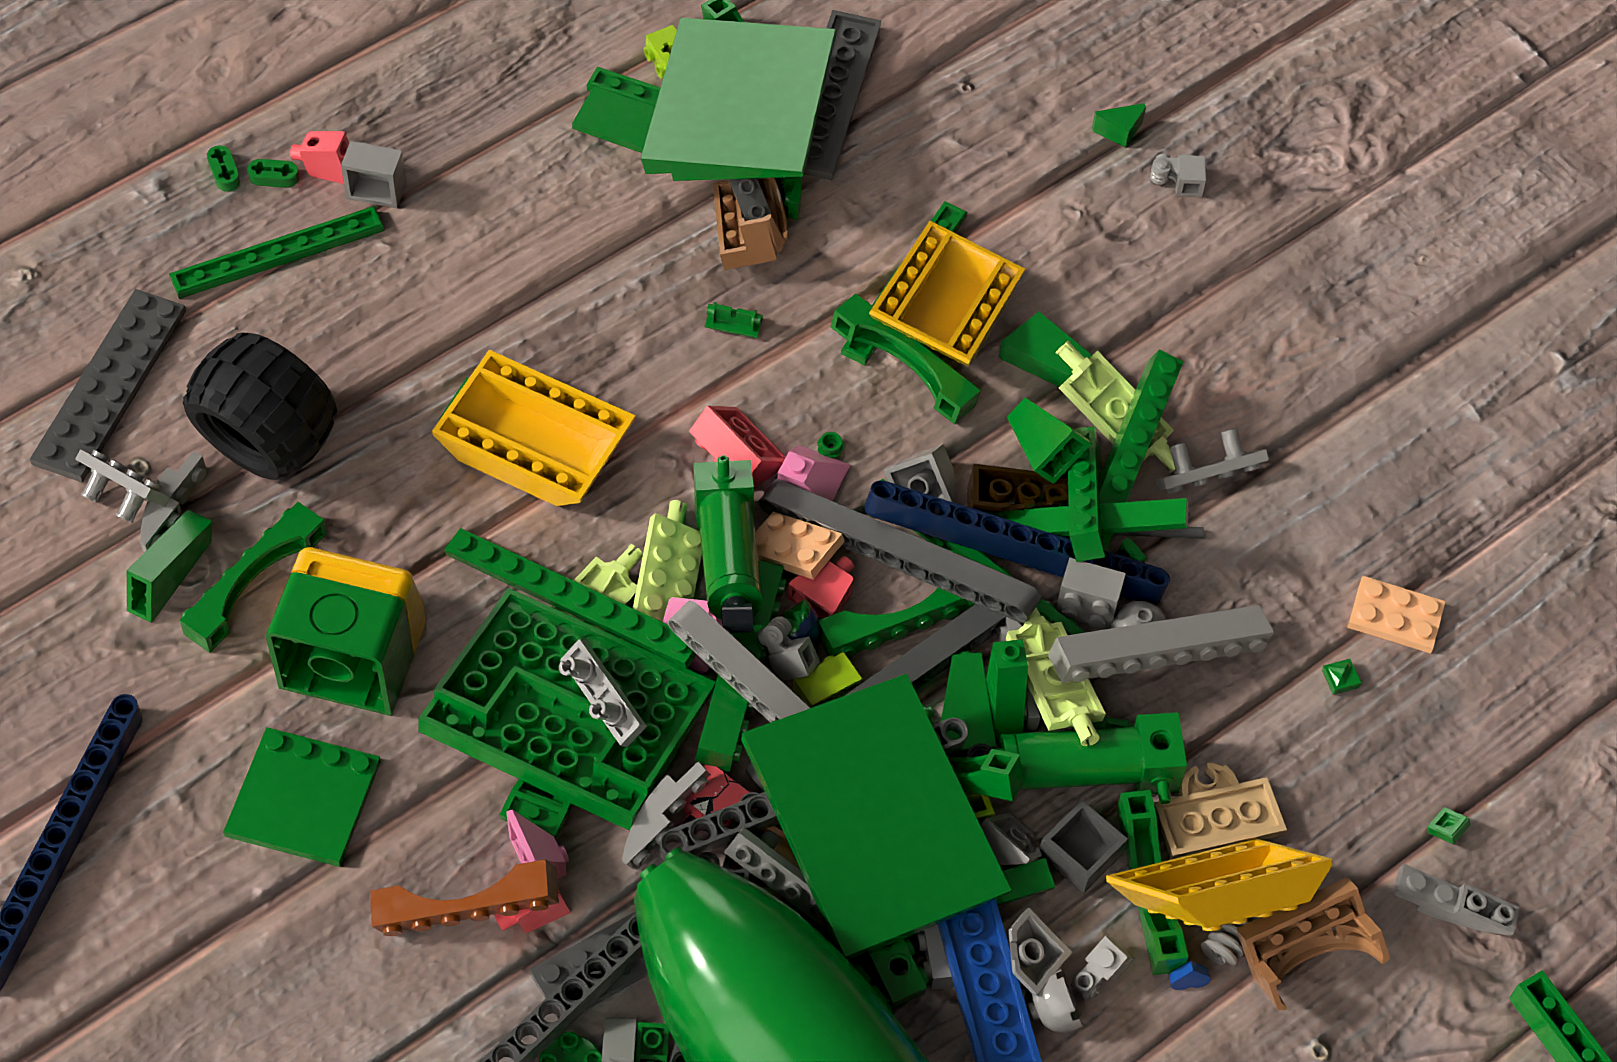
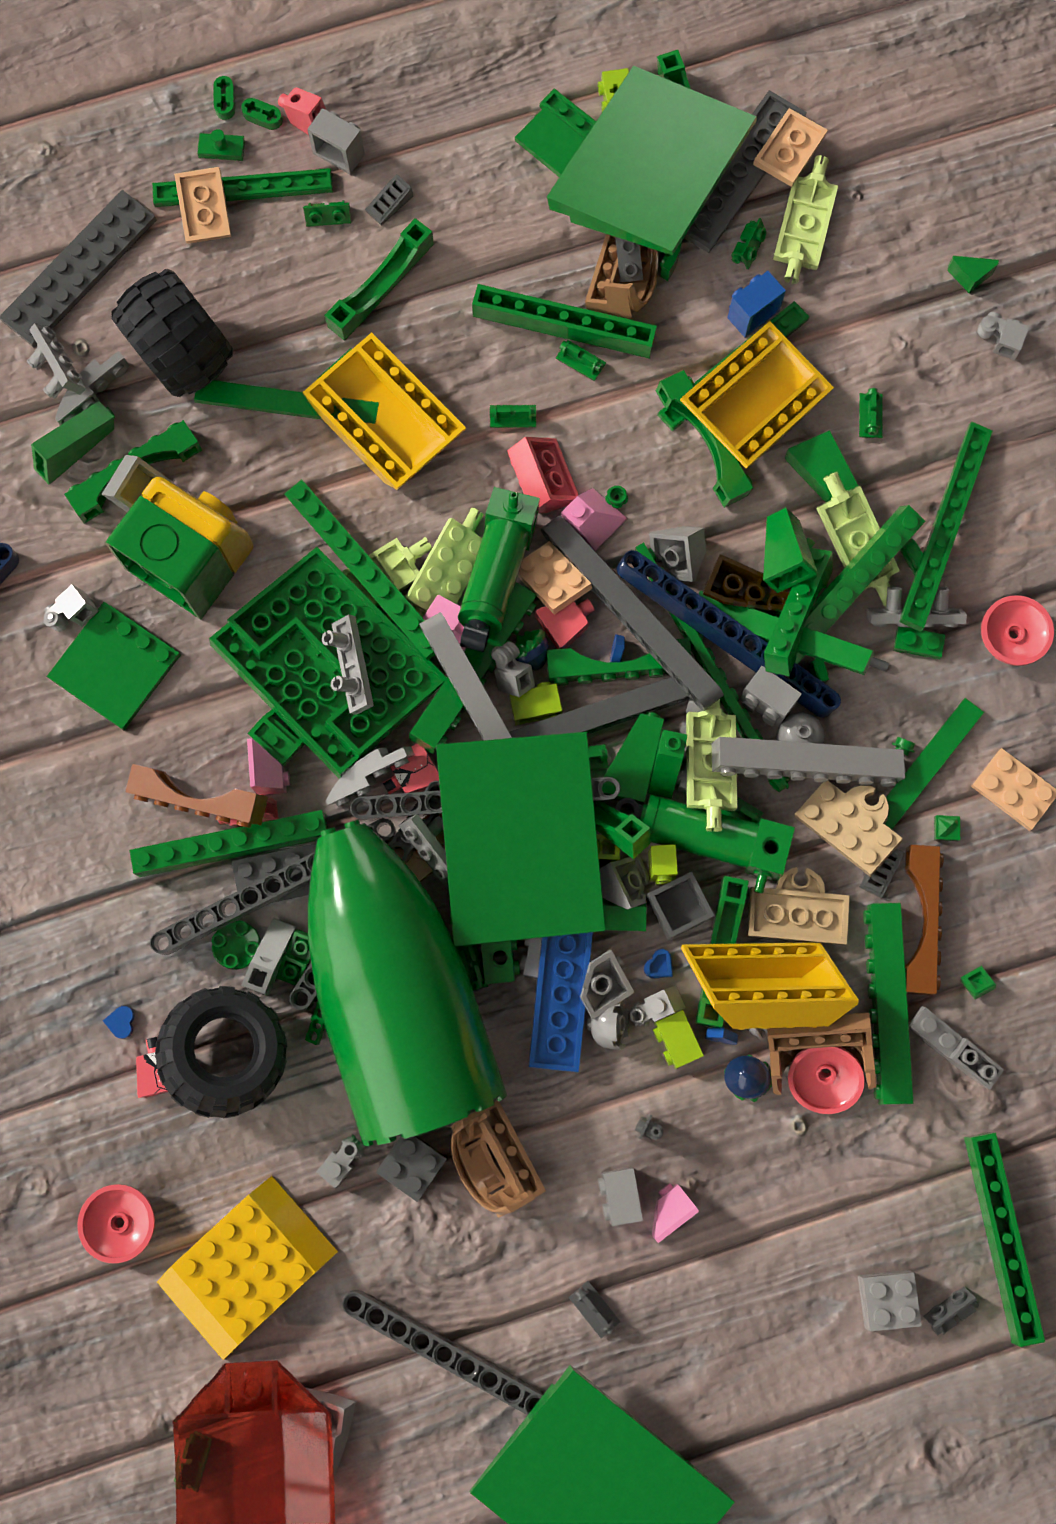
camera: 25 degrees right, 20 degrees up
(228, 740) = (70, 605): none -> light grey brick
(236, 216) = (221, 146): none -> green tile
(239, 278) = (203, 205): none -> light nougat plate
(261, 583) = (130, 481): none -> light grey piece
(387, 252) = (330, 214): none -> green hinge
(387, 458) = (275, 401): none -> green tile
(456, 336) = (355, 308): none -> green arch
(461, 205) = (384, 195): none -> dark grey slope
(520, 948) = (228, 844): none -> green brick
(680, 396) = (512, 416): none -> green hinge
(701, 284) = (563, 321): none -> green brick
(872, 149) = (753, 235): none -> green hinge
(879, 55) = (790, 147): none -> light nougat plate
(896, 597) = (617, 648): none -> blue tile
(906, 210) = (756, 303): none -> blue piece
(924, 122) = (806, 221): none -> yellowish green plate
(1043, 804) = (662, 864): none -> lime brick
(1074, 287) = (871, 414): none -> green hinge
(1085, 924) = (660, 965): none -> blue tile
(1135, 683) = (779, 784): none -> green plate
(1141, 996) = (678, 1040): none -> lime brick
(1187, 415) = (912, 554): none -> green beam
(1204, 371) = (945, 527): none -> green plate
(1226, 497) = (919, 642): none -> green plate
(1236, 701) = (851, 824): none -> tan plate
(1239, 1011) = (748, 1077): none -> dark blue hair
(1261, 600) = (905, 745): none -> green plate
(1284, 641) = (931, 760): none -> green tile
(1291, 722) = (898, 854): none -> dark grey slope
(1326, 439) = (1027, 620): none -> coral dish
(1335, 725) = (923, 869): none -> dark orange arch
(1343, 994) = (826, 1091): none -> coral dish
(1352, 856) = (889, 1003): none -> green brick

